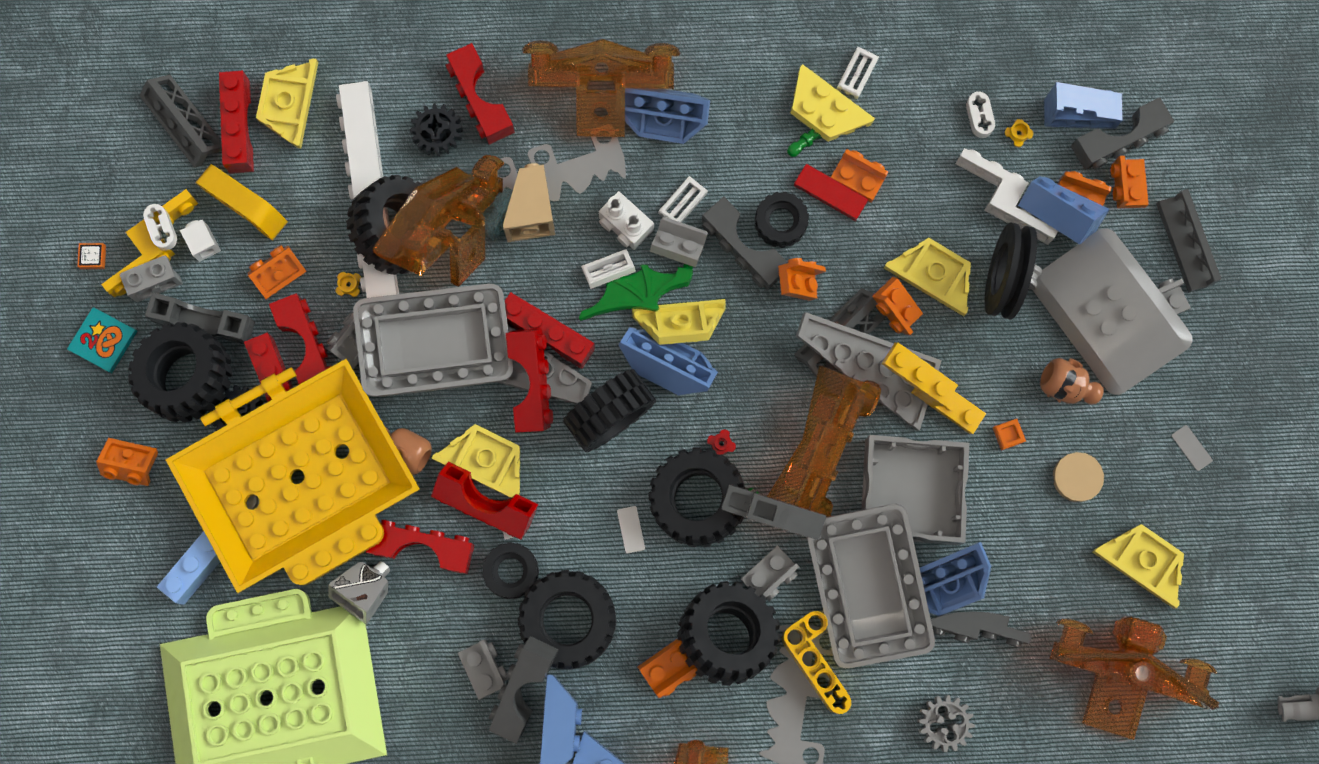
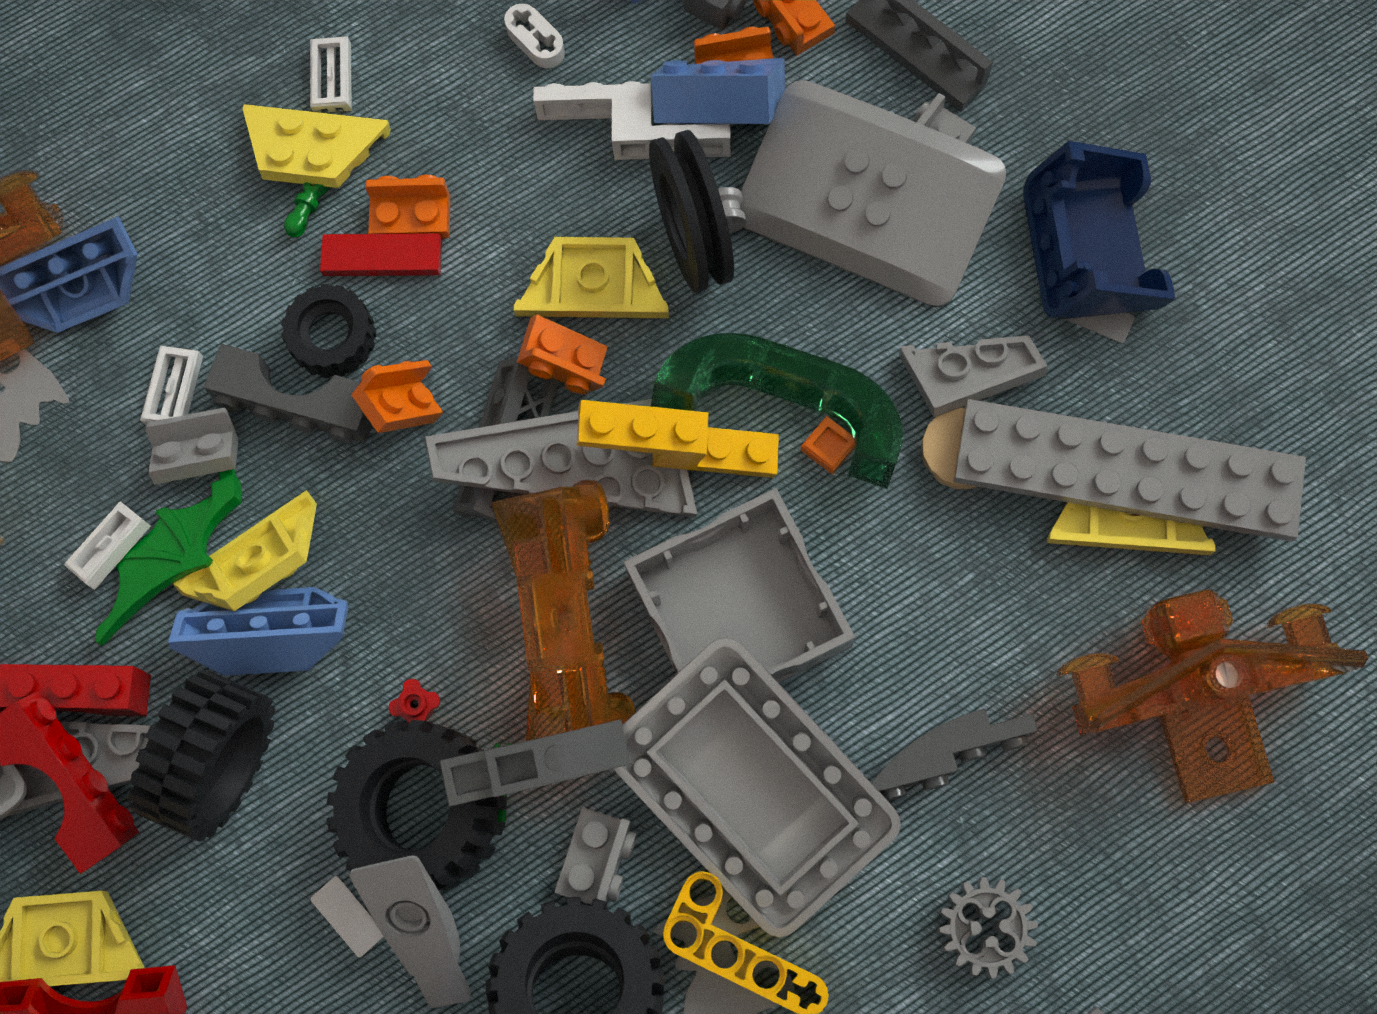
camera: 20 degrees left, 5 degrees down
(625, 220) = (94, 460): white brick -> none
(668, 555) = (415, 926): none -> light grey piece
(956, 580) = (872, 700): medium blue wedge -> none
(1013, 390) = (794, 377): none -> clear green arch
(1026, 132) = (602, 20): yellow plate -> none
(1069, 382) = (870, 322): nougat piece -> none
(1104, 439) = (958, 373): none -> light grey wing
(1159, 541) = (1131, 470): none -> light grey plate
(1215, 403) = (1089, 235): none -> dark blue windscreen

